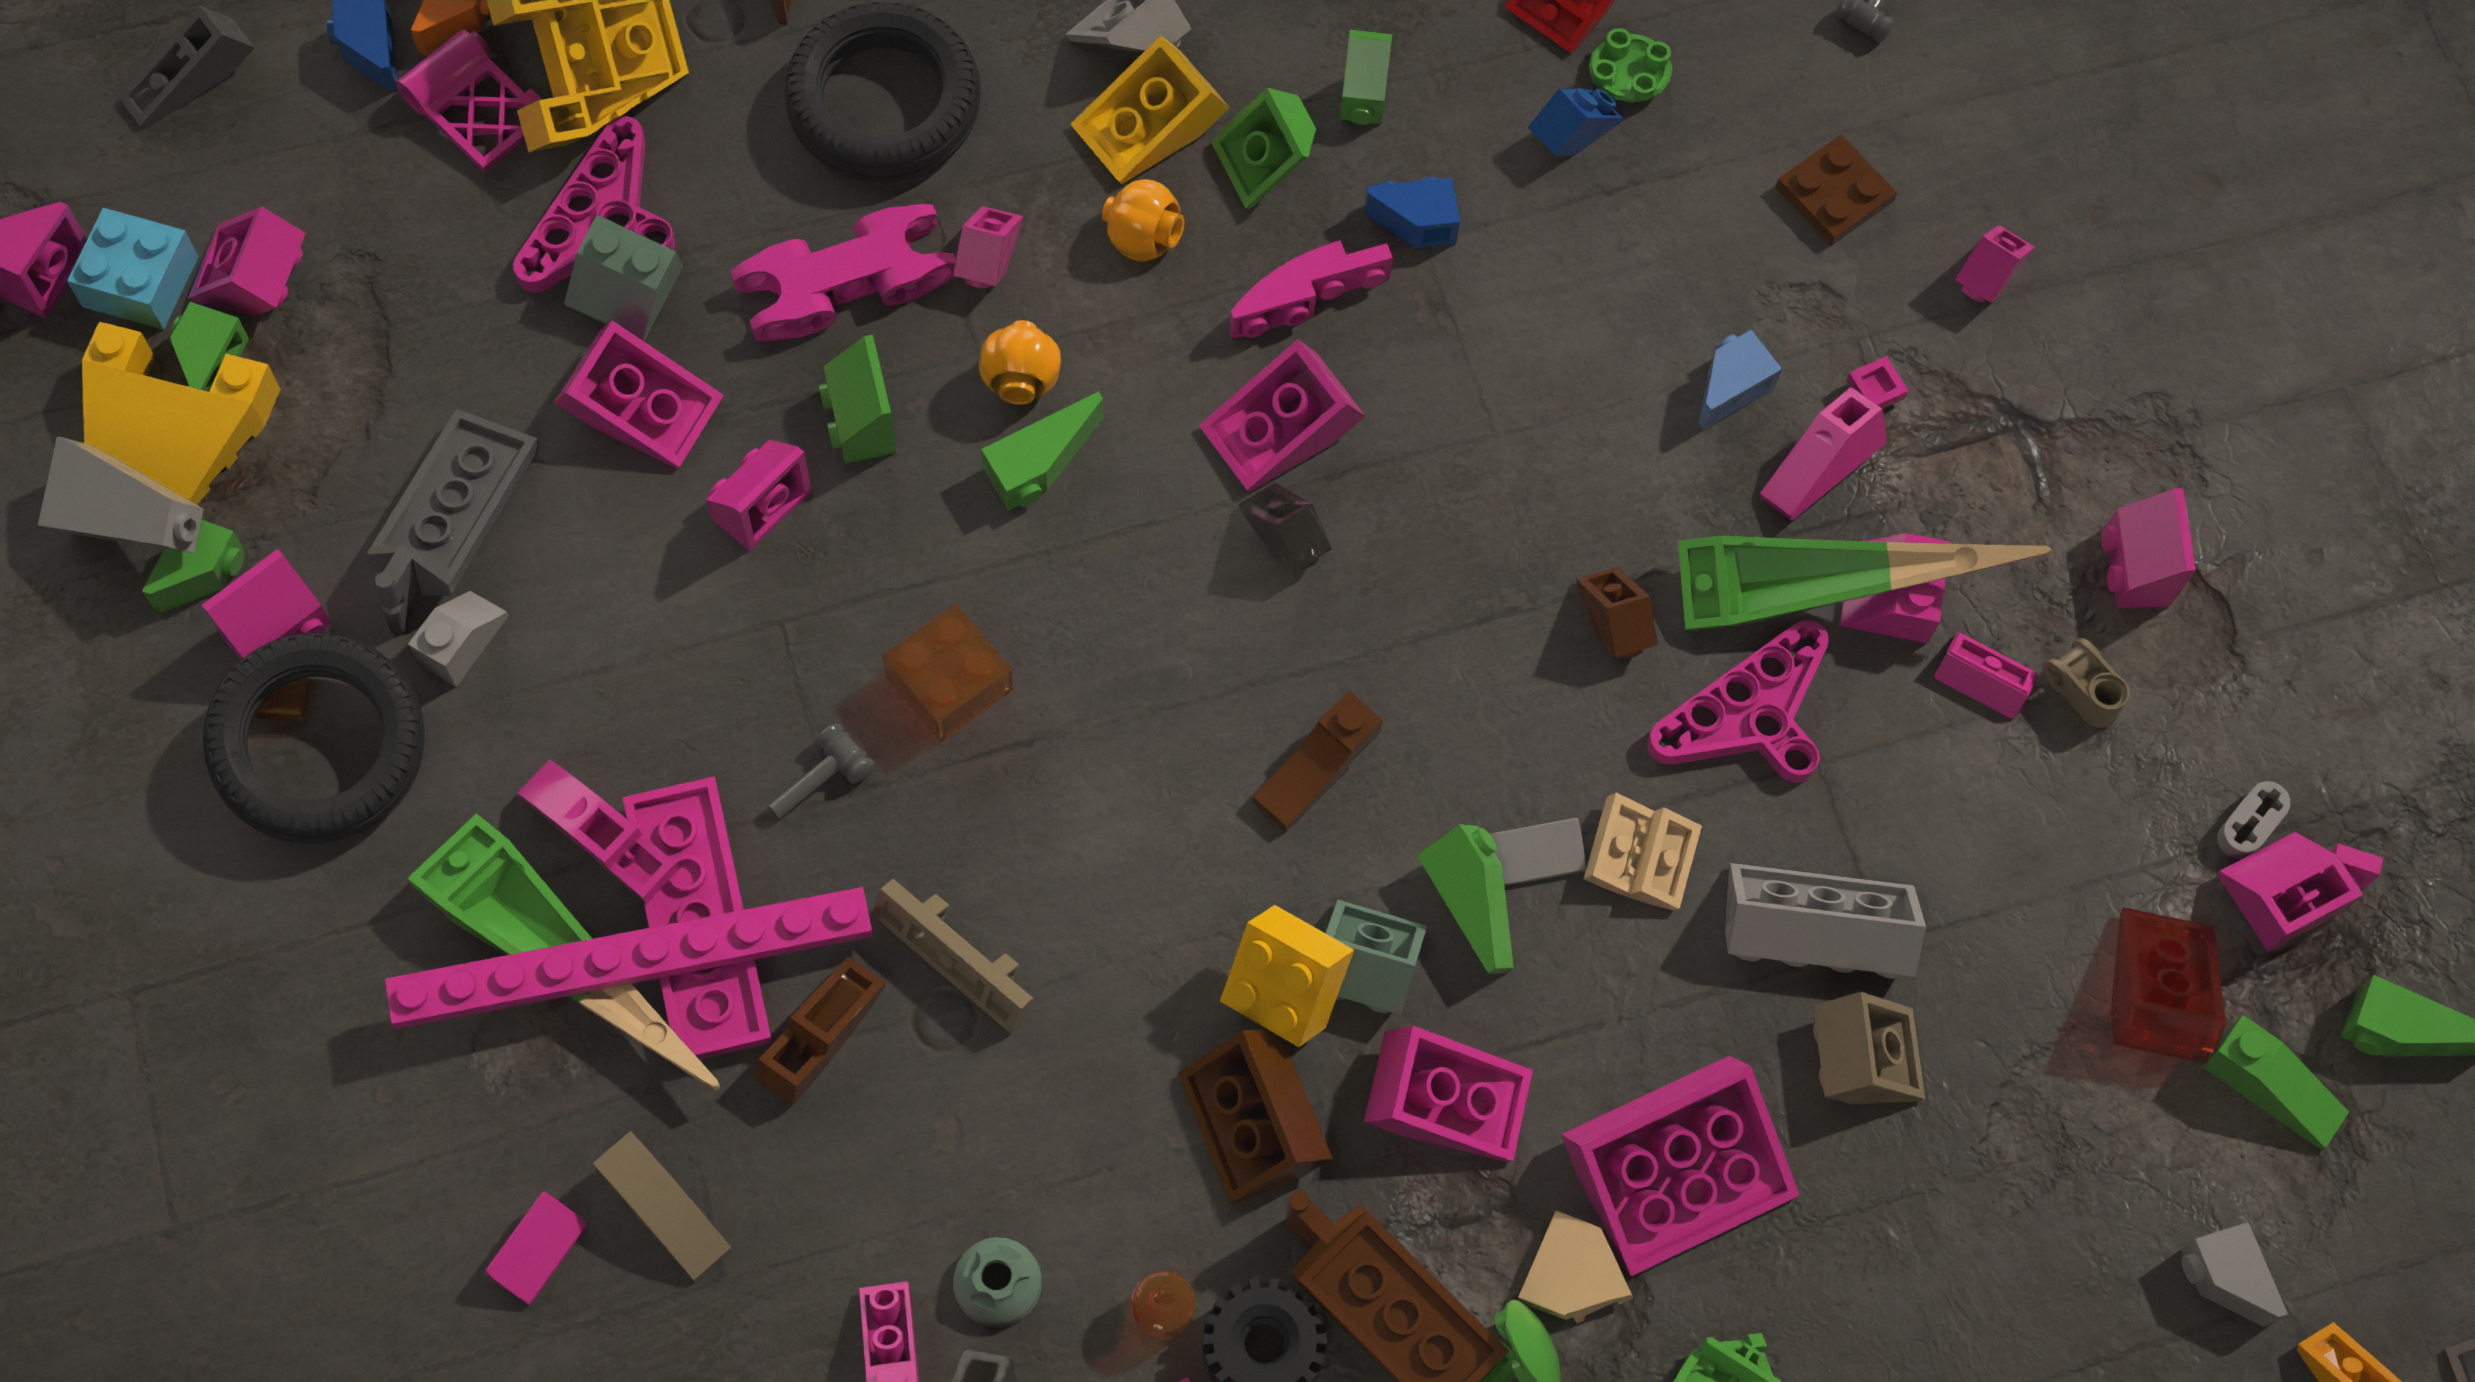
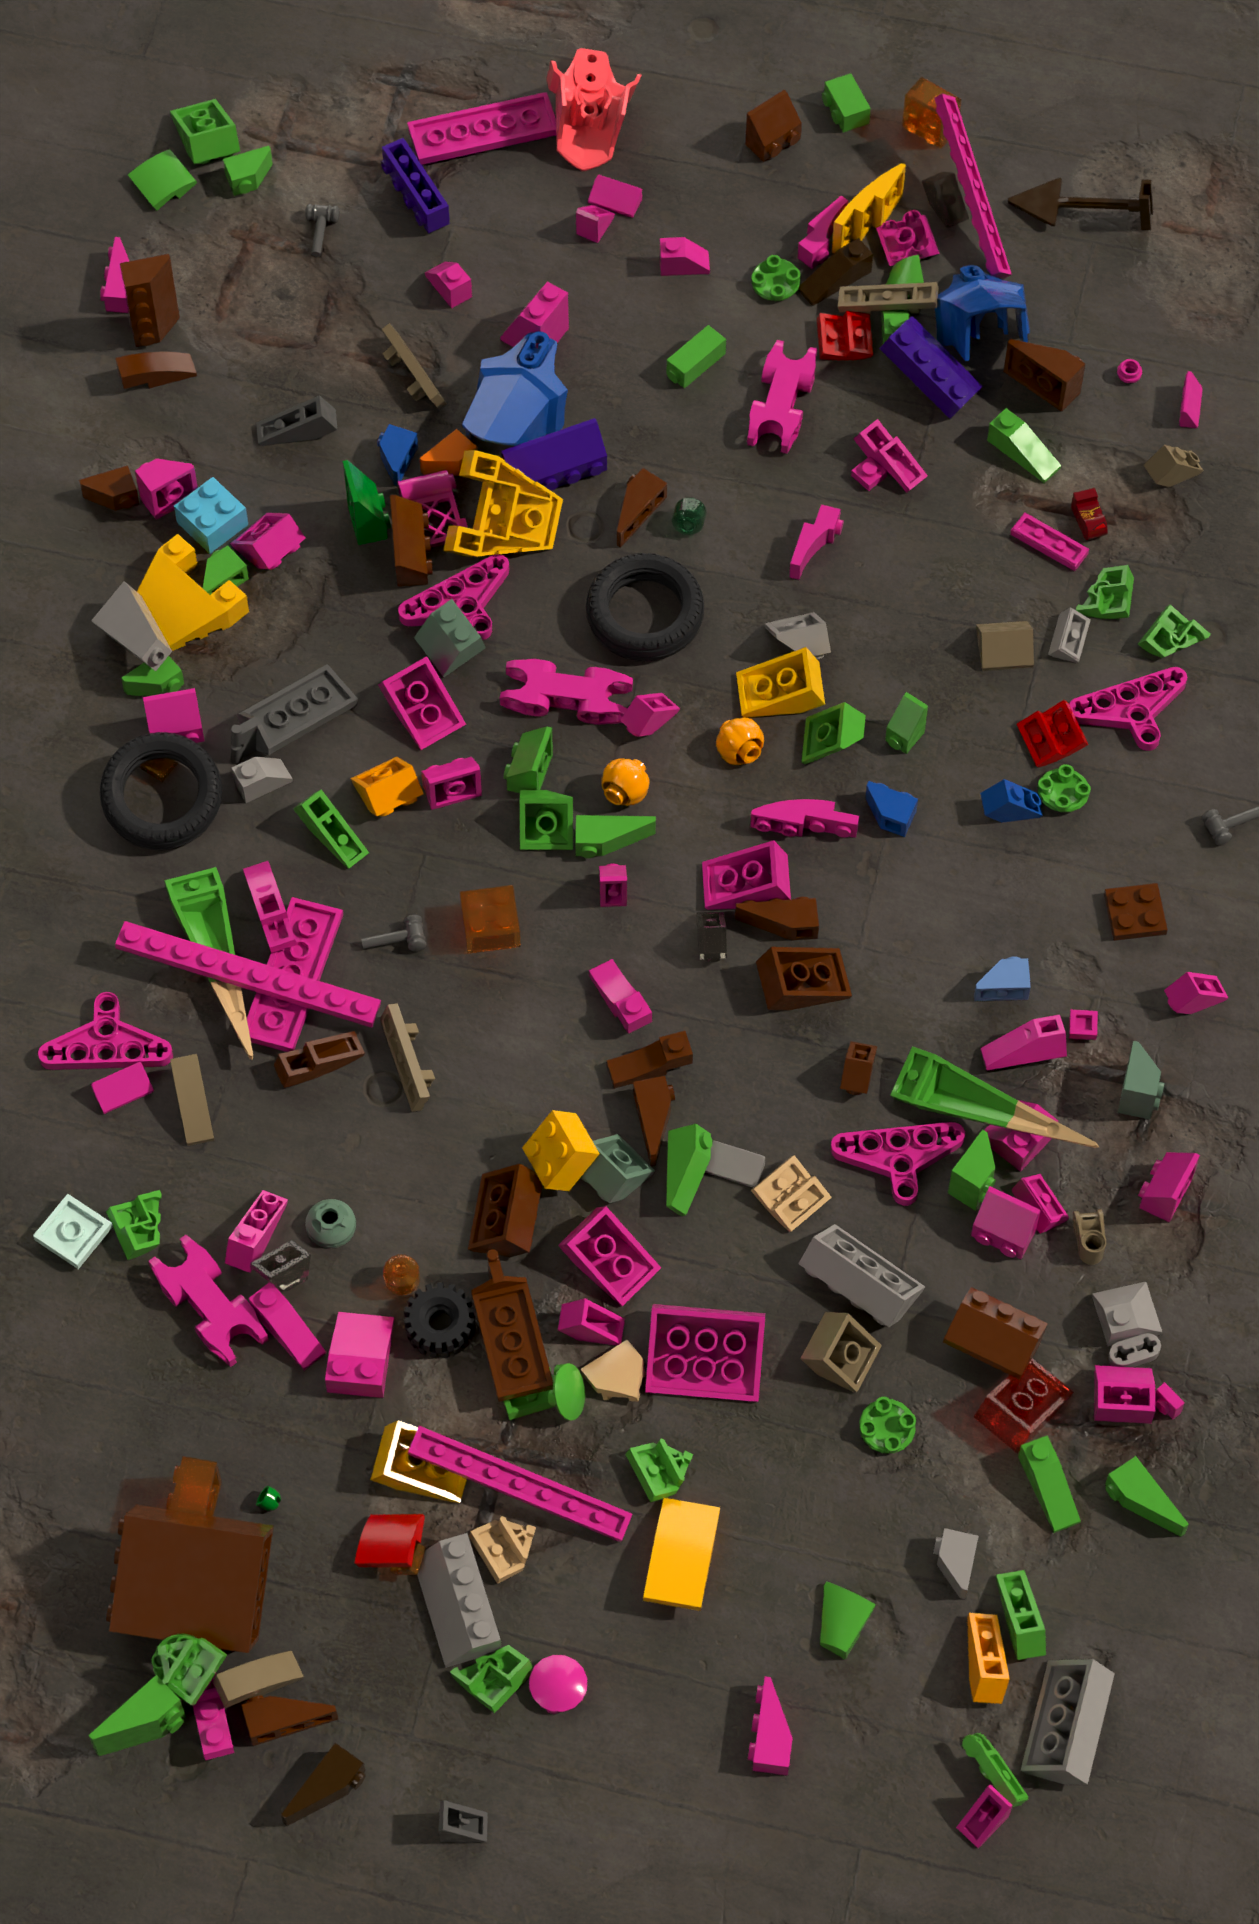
camera: 35 degrees right, 5 degrees down
(369, 142) = (365, 506): none -> green slope
(442, 1199) = (92, 1042): none -> dark pink beam
(473, 162) = (410, 542): none -> reddish brown slope
(616, 658) = (331, 828): none -> bright green slope
(664, 548) = (388, 786): none -> light orange slope
(935, 479) = (545, 820): none -> bright green slope
(1098, 525) = (613, 885): none -> dark pink slope
(1213, 687) = (621, 996): none -> dark pink slope
(1370, 834) = (653, 1108): none -> reddish brown slope
(1377, 446) = (786, 918): none -> reddish brown slope
(1453, 521) = (802, 977): none -> reddish brown slope
(1488, 1217) = (590, 1323): none -> dark pink slope
(1887, 679) = (973, 1173): none -> bright green slope
(1973, 731) = (1005, 1223): none -> dark pink slope
(2003, 1126) = (887, 1425): none -> bright green dish
(2016, 427) = (1141, 1085): none -> sand green slope
(2067, 902) = (995, 1333): none -> reddish brown slope
(2204, 770) = (1126, 1312): none -> light grey slope
(2374, 1303) = (1021, 1615): none -> bright green slope

